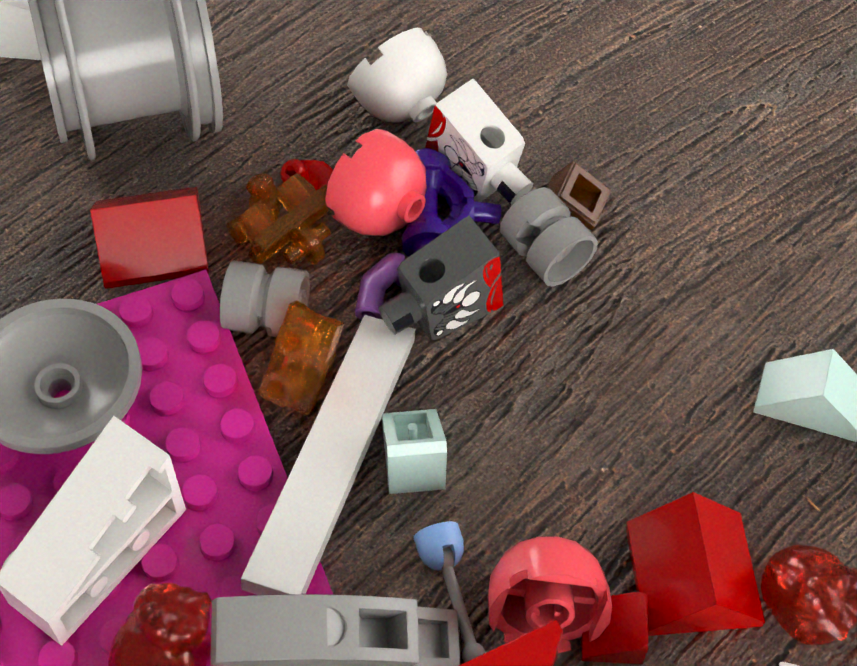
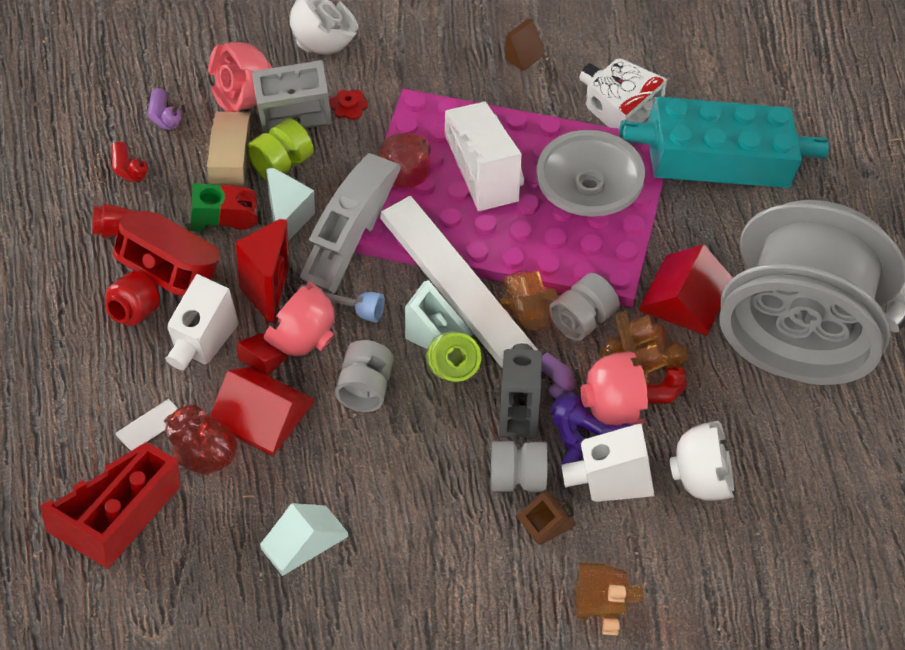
camera: 125 degrees right, 5 degrees down
(463, 374) = (453, 356): none -> lime wheel
(556, 468) = (364, 376): none -> light grey wheel
(628, 89) = (604, 593): none -> clear orange piece

